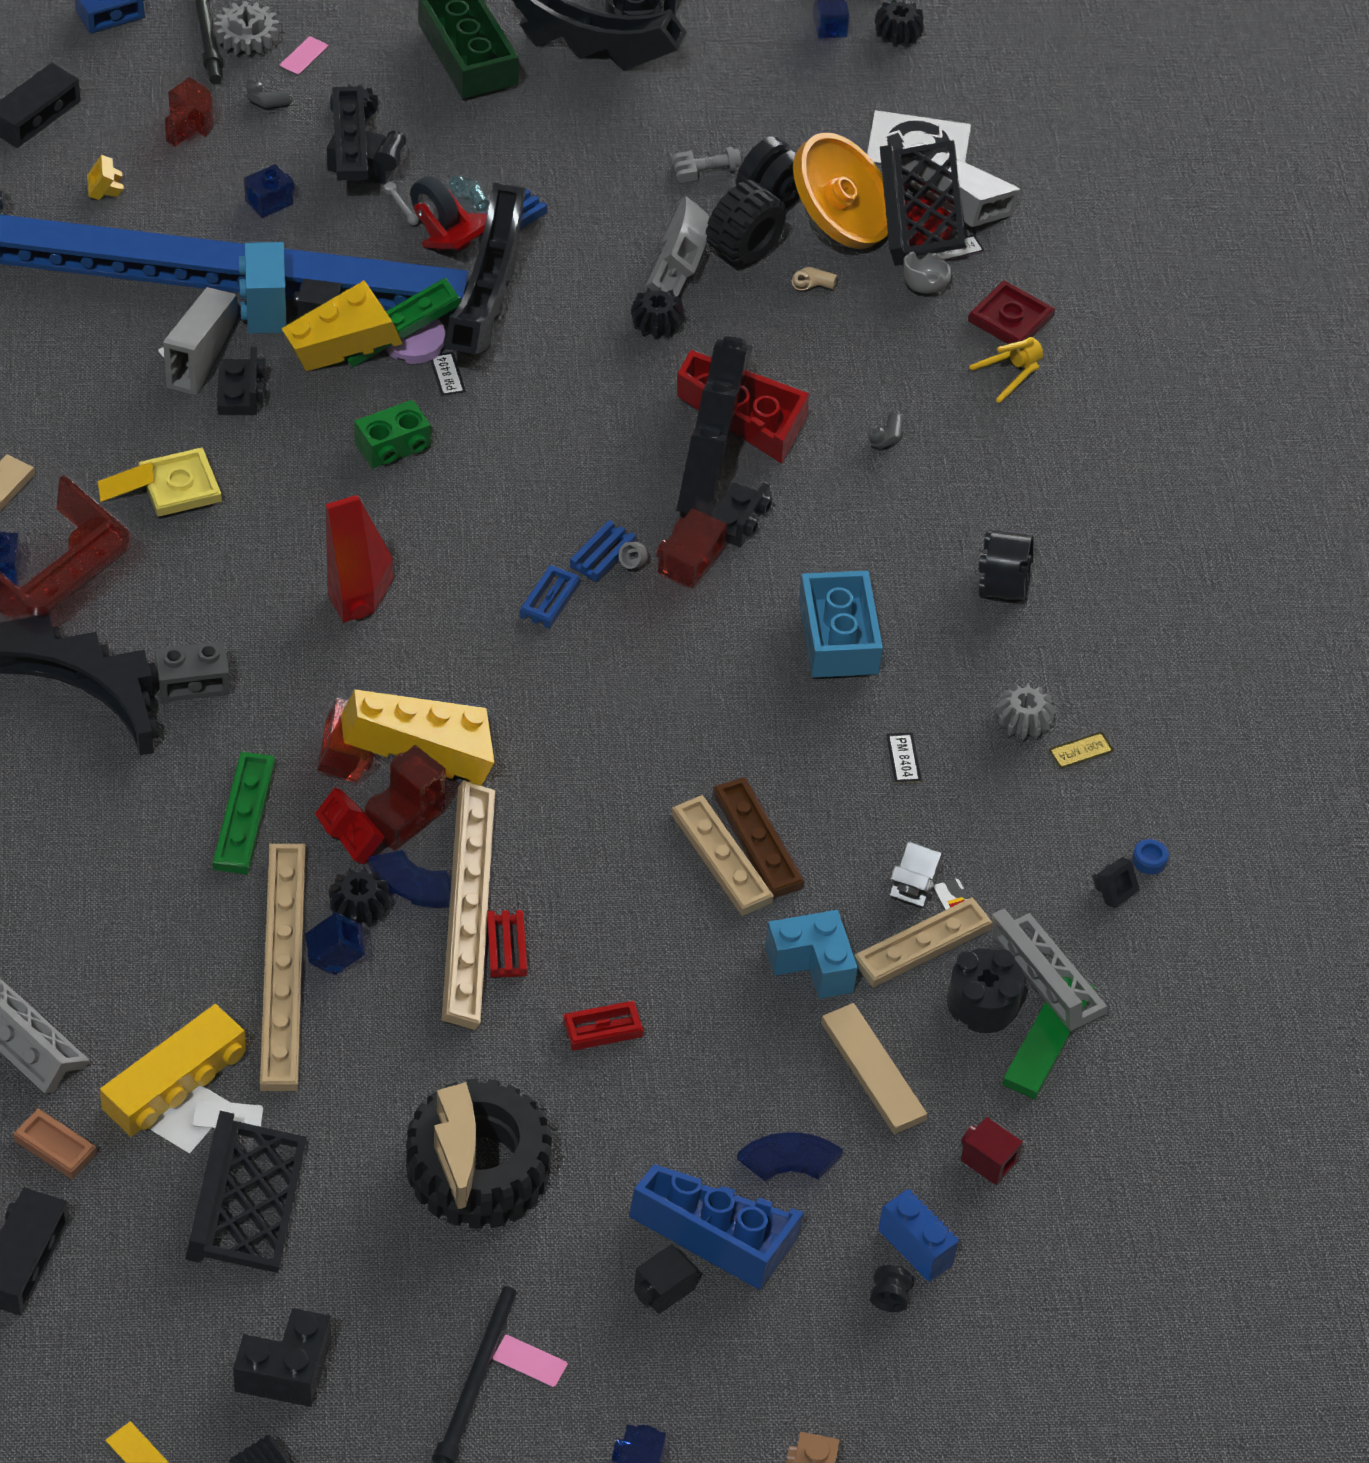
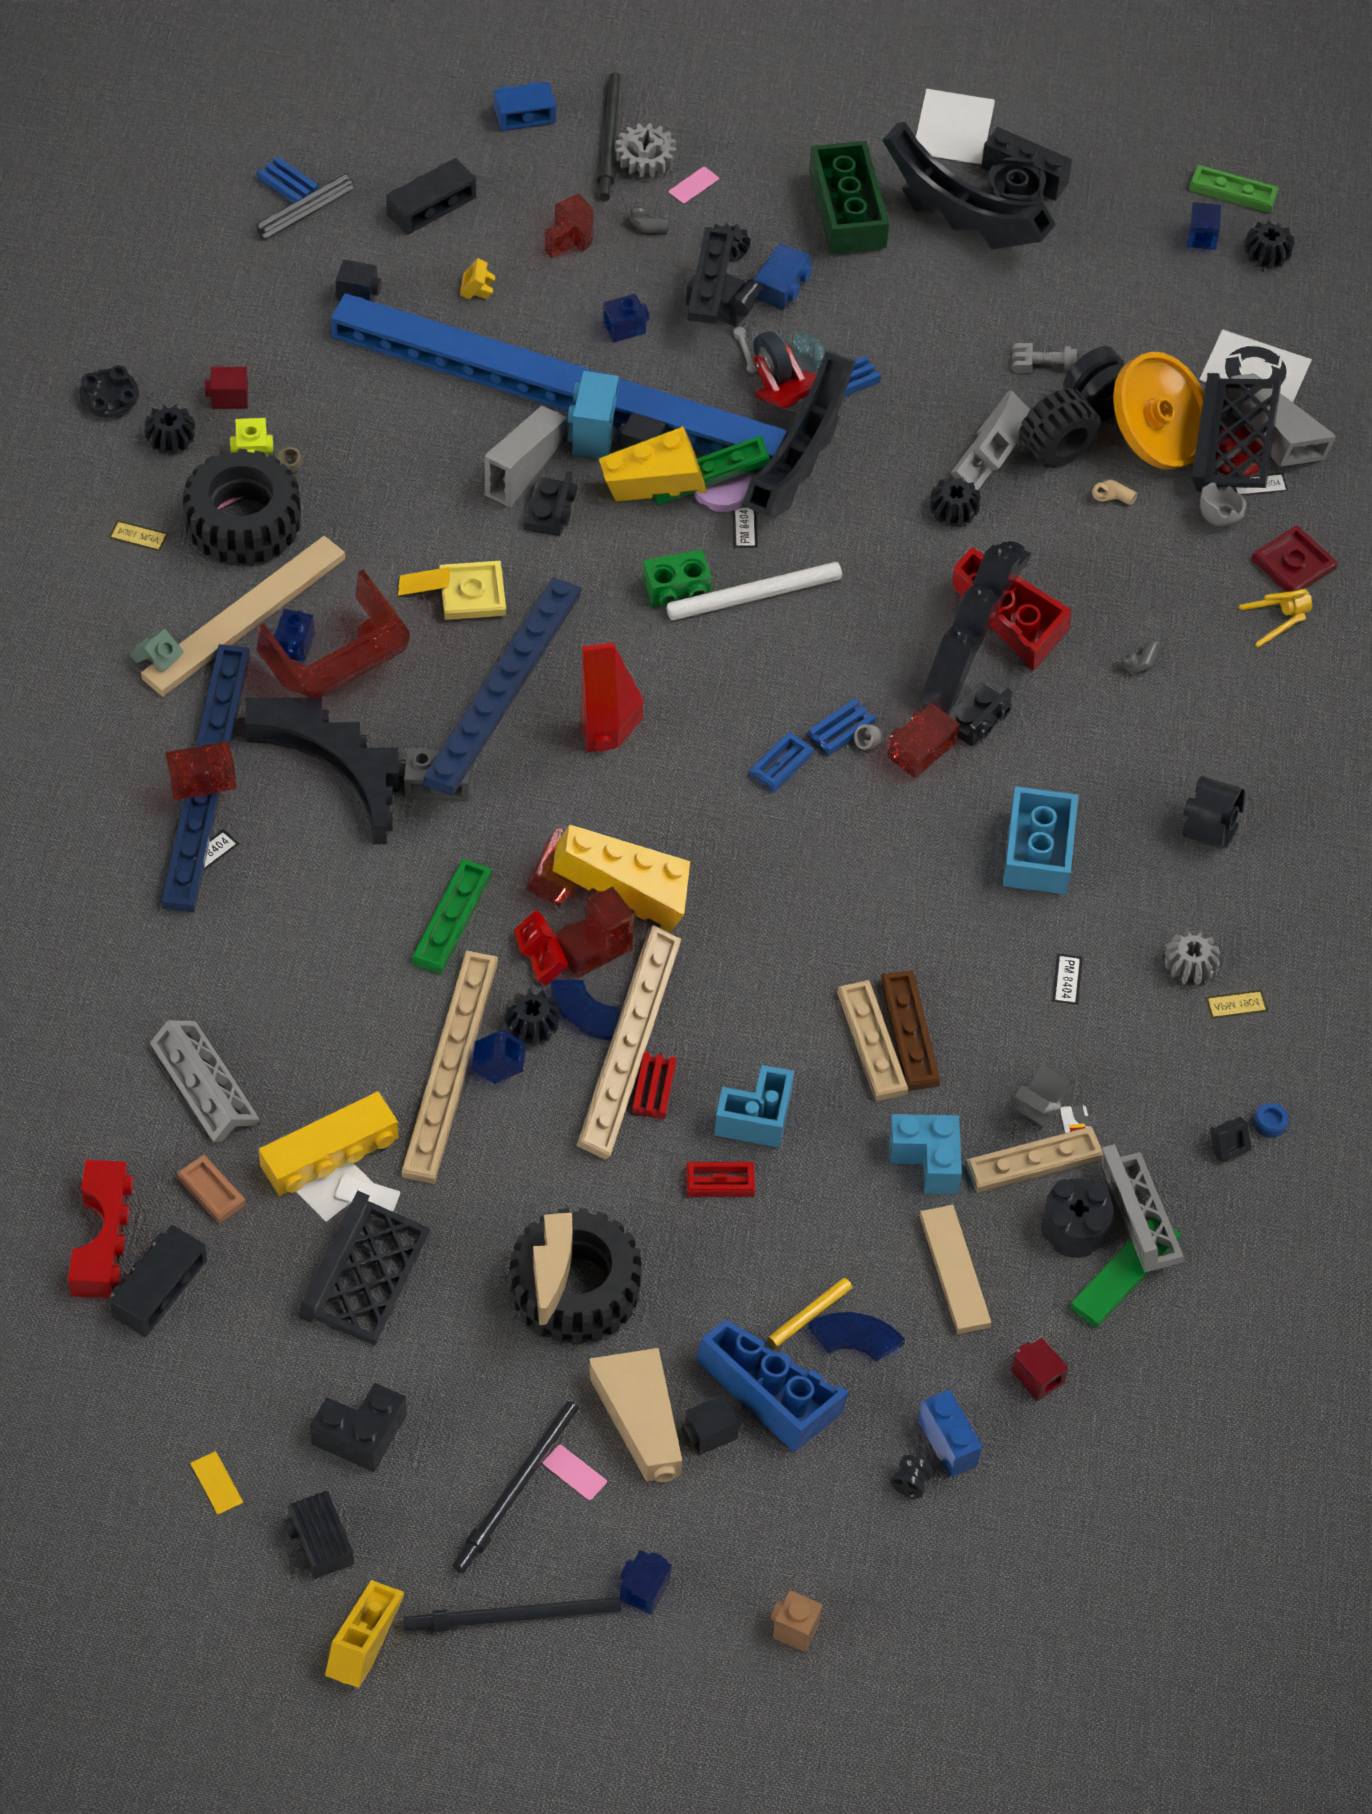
camera: 15 degrees right, 5 degrees up
(238, 571) = (501, 687): none -> dark blue plate
(422, 125) = (783, 275): none -> blue brick
(474, 434) = (754, 591): none -> white axle
(585, 1278) = (640, 1407): none -> tan slope
(627, 950) = (756, 1115): none -> dark azure brick
(735, 1142) = (809, 1312): none -> yellow bar

